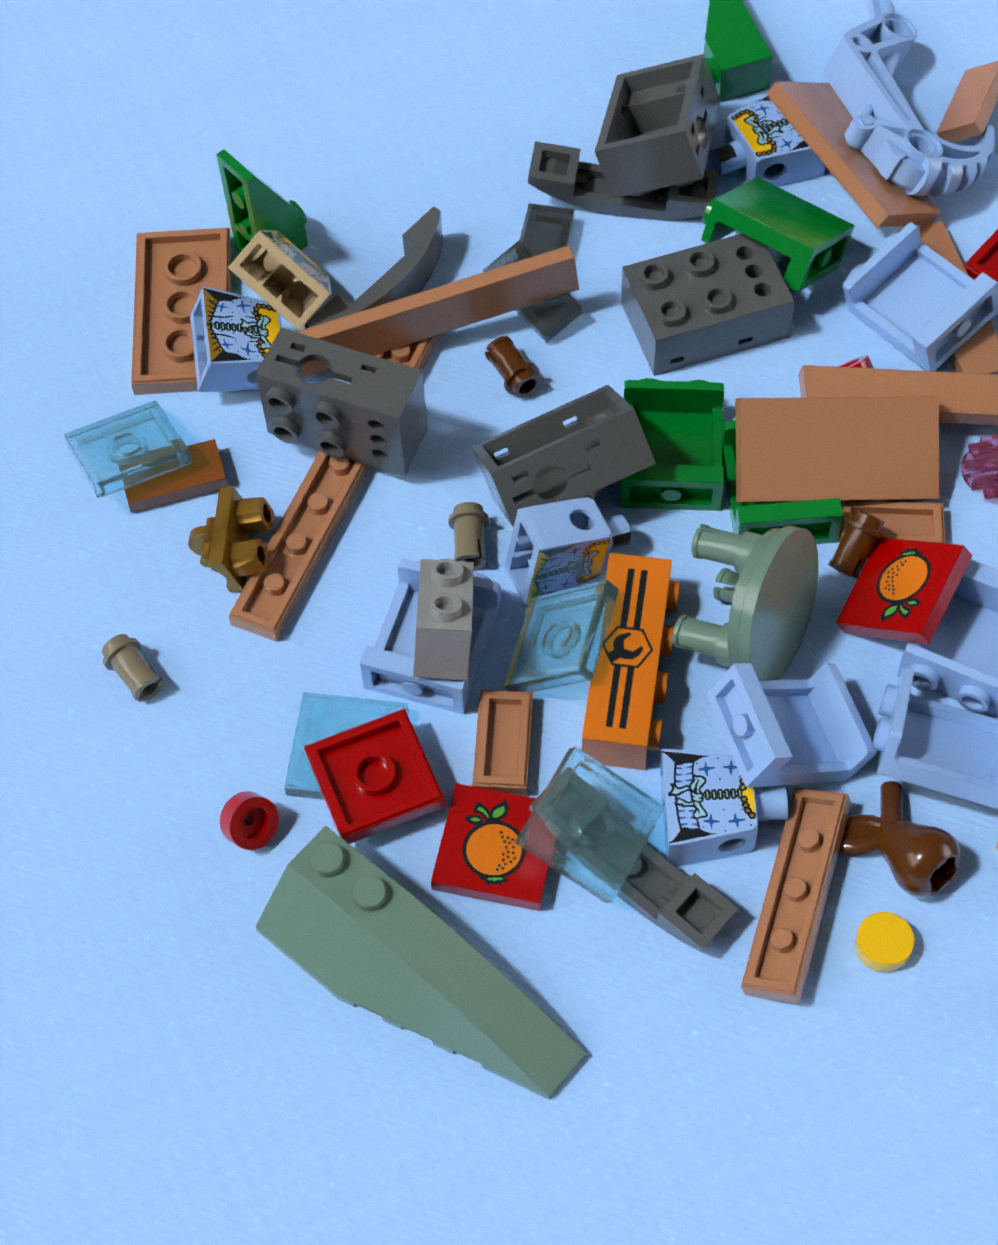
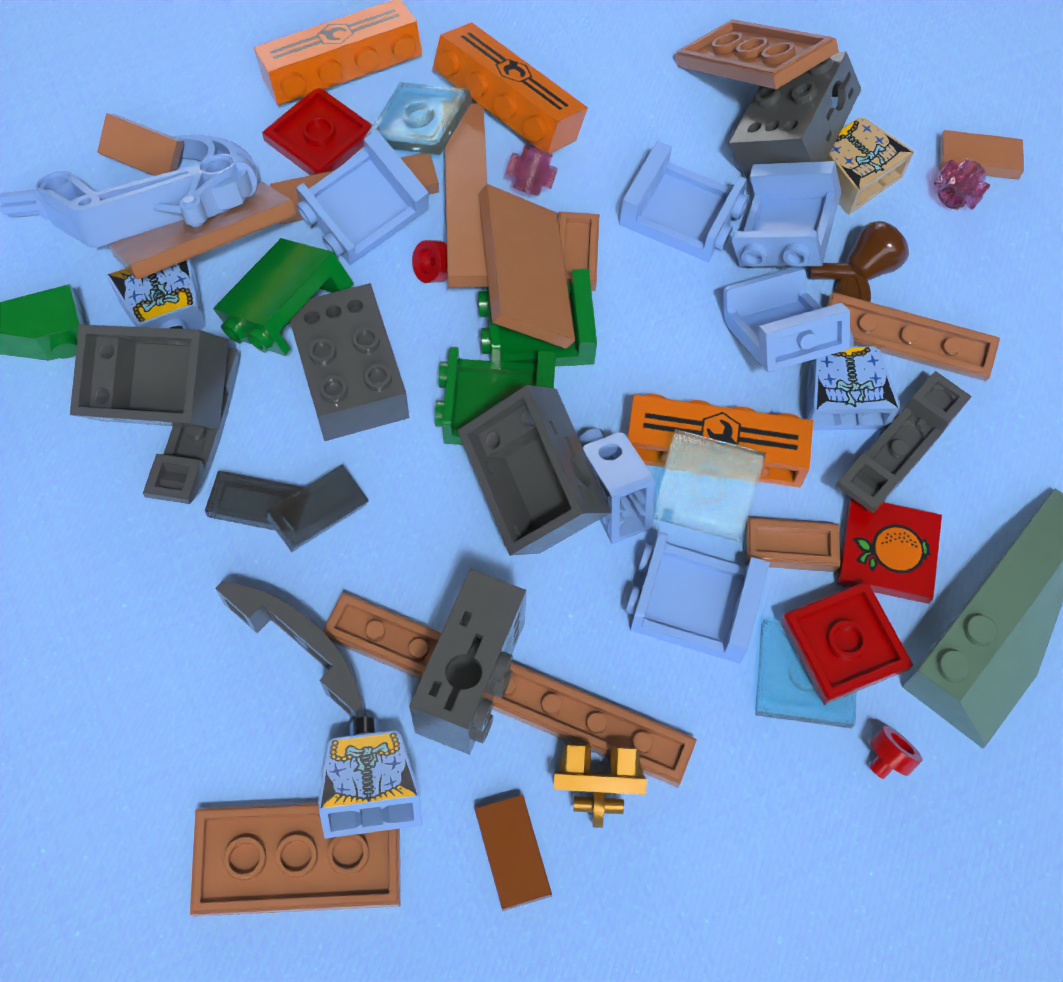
camera: 95 degrees left, 5 degrees up
(126, 659) = (739, 875): dark tan pin -> none
(127, 449) = (489, 897): clear light blue tile -> none
(257, 206) = (210, 762): green slope -> none
(282, 276) = (287, 743): tan torso -> none
(444, 619) = (710, 569): light grey brick -> none
(449, 306) = (351, 589): nougat tile -> none
(469, 539) = (589, 567): dark tan pin -> none
(519, 376) = (402, 528): reddish brown pin -> none
(590, 825) = (890, 463): clear light blue tile -> none
(769, 602) = (688, 315): sand green piece -> none
(857, 543) = (604, 267): reddish brown pin -> none
(884, 942) = (938, 285): yellow tile -> none
(904, 590) = (654, 235): red tile -> none

